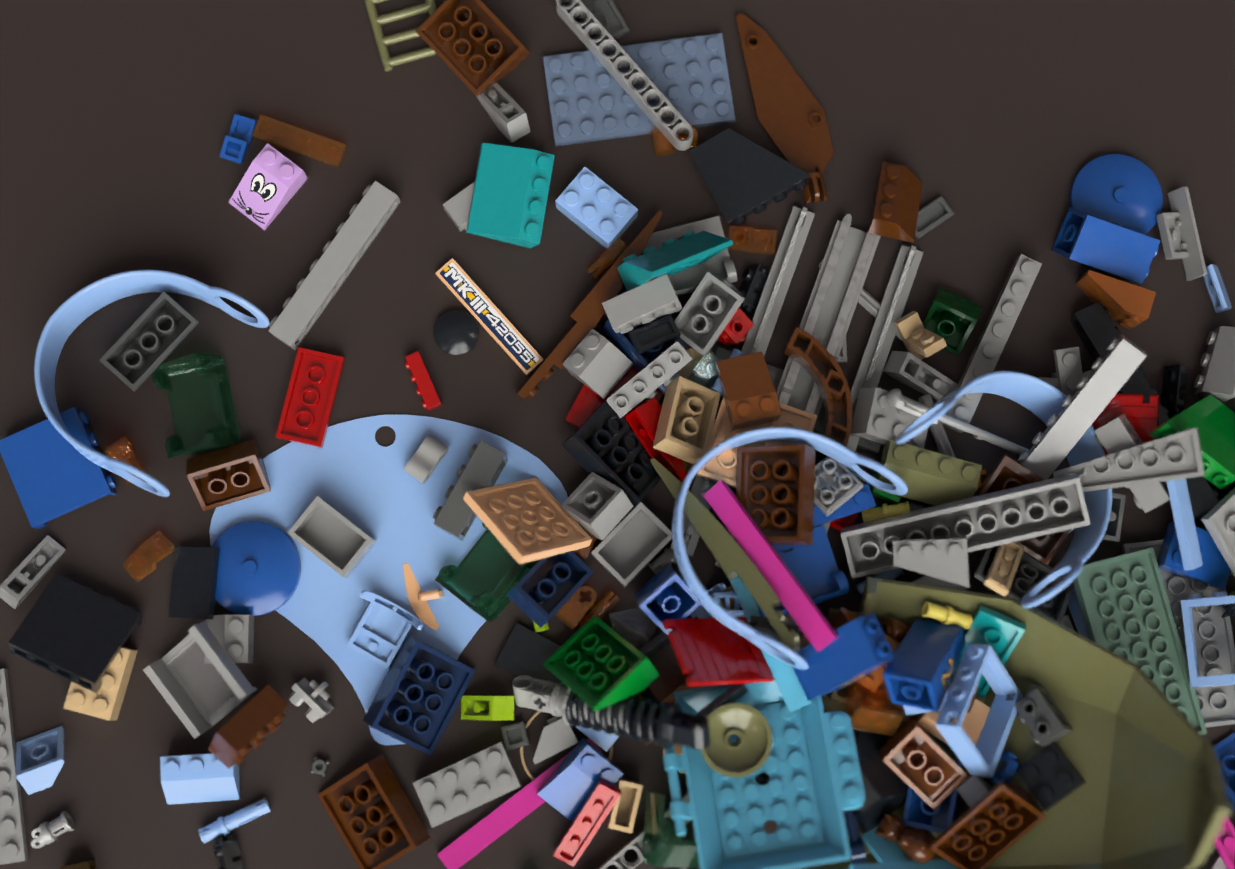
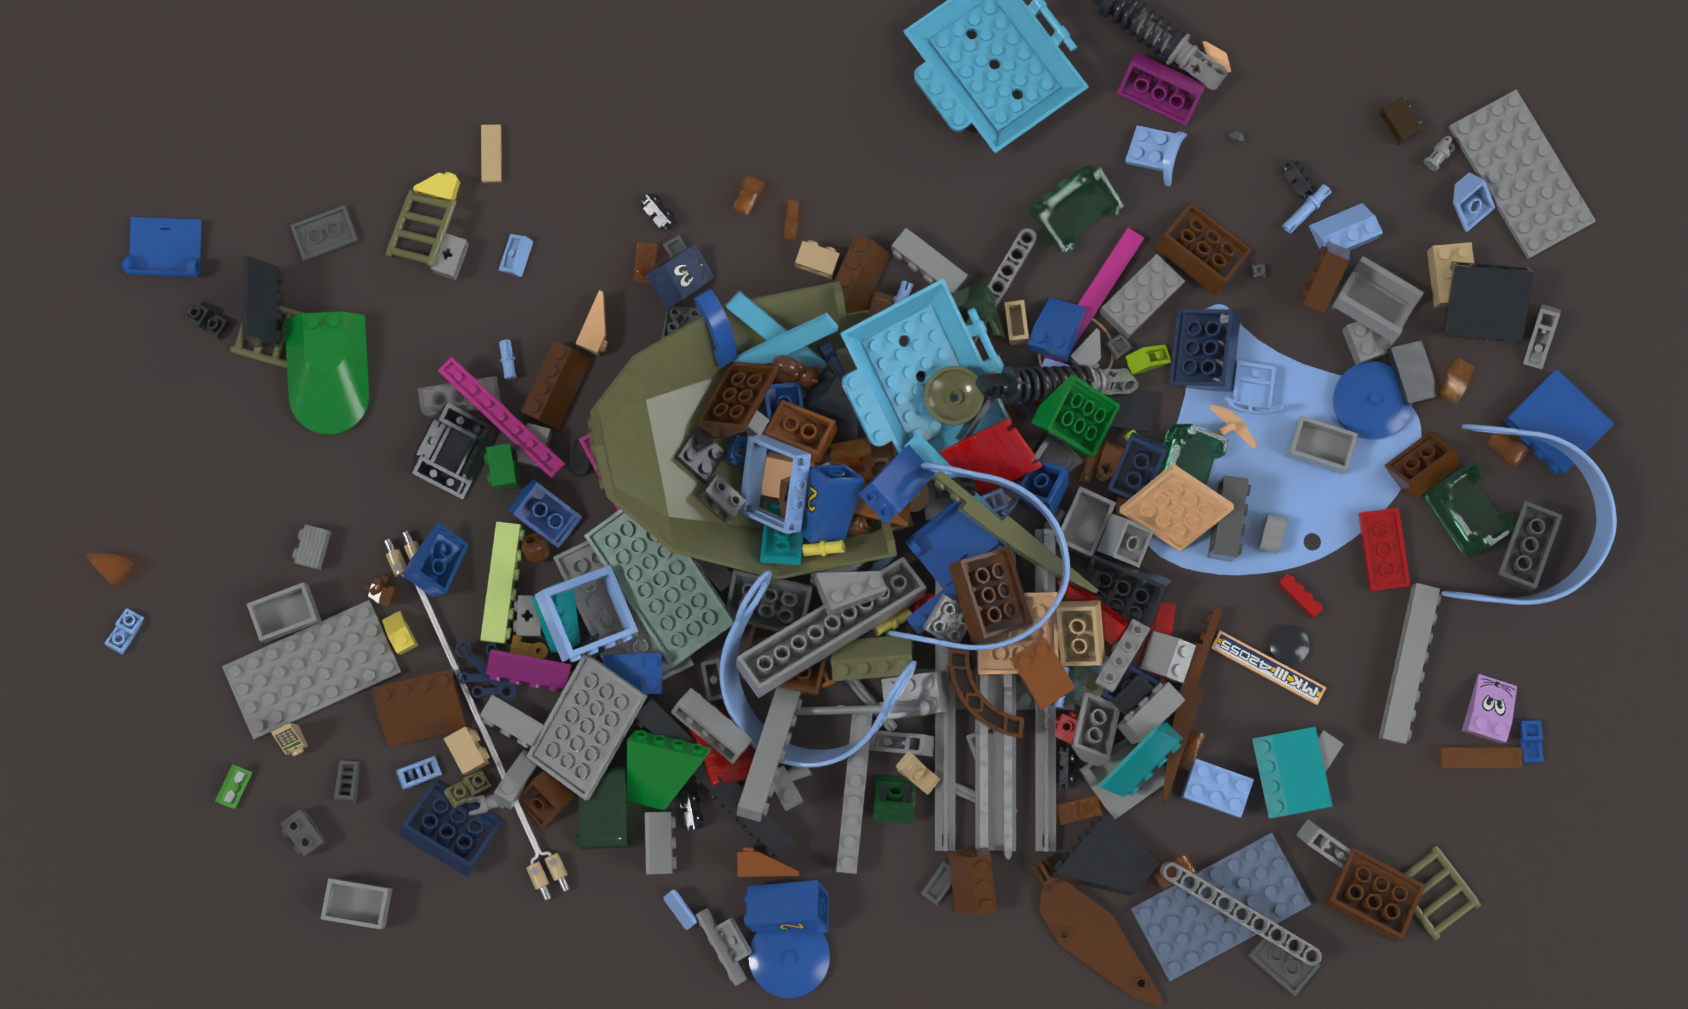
camera: 160 degrees right, 0 degrees up
(314, 696) = (1284, 319): light grey hips -> none
(587, 822) = (1040, 299): plate -> none
(770, 566) = (977, 535): dark pink tile -> none
(1004, 567) = (789, 602): tan tile -> none
(1155, 461) = (704, 724): light grey wing -> none
(1184, 524) = (659, 691): light blue tile -> none

